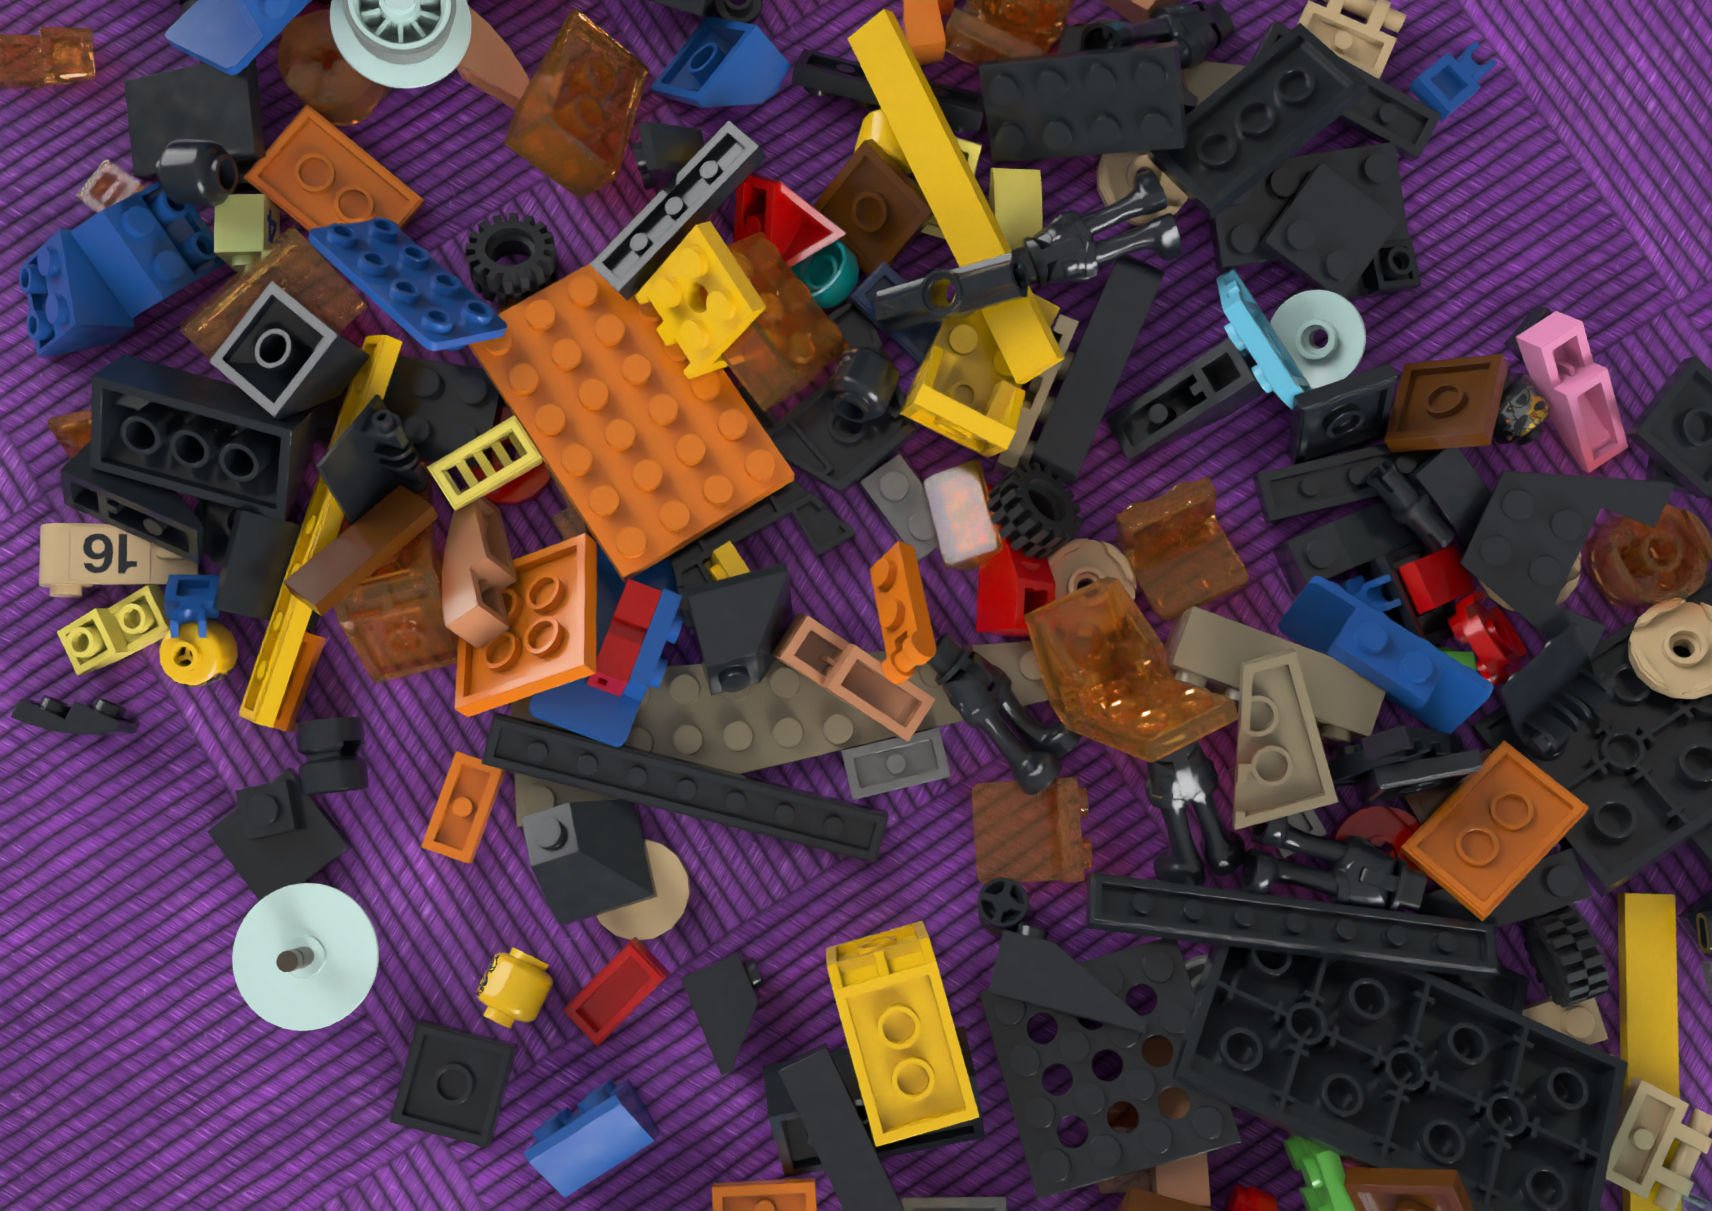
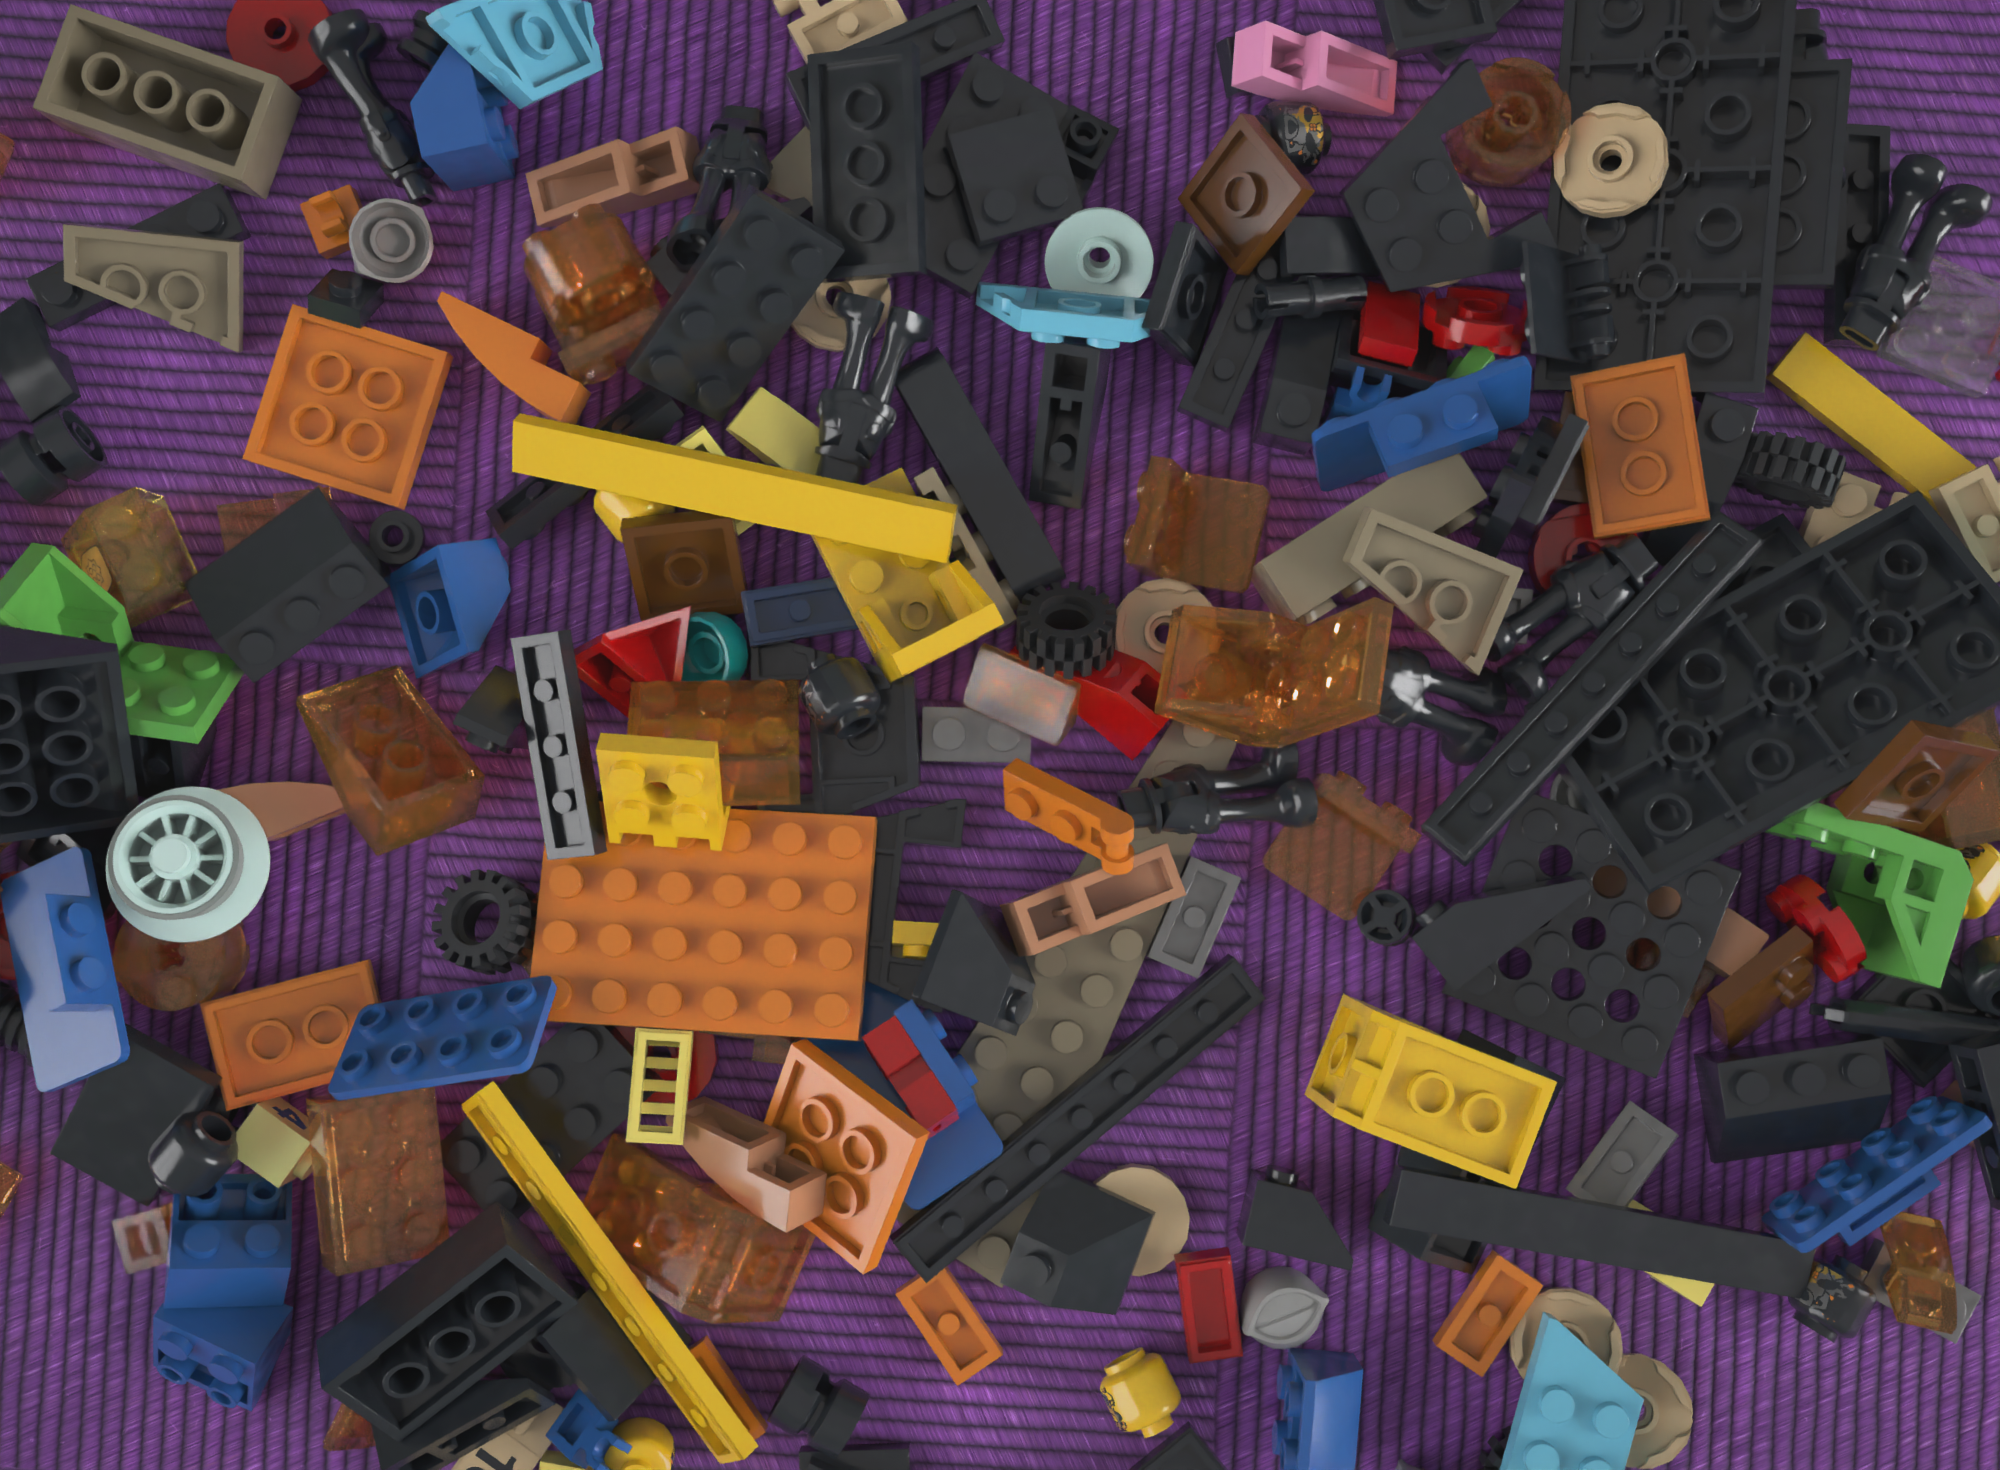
camera: 50 degrees left, 5 degrees up
(288, 355) = (431, 1194): black slope -> none
(361, 550) = (659, 1255): reddish brown tile -> none
(371, 462) = (588, 1191): black hinge -> none
(654, 1050) = (1281, 1307): none -> light grey hat
(976, 287) = (834, 536): black piece -> none

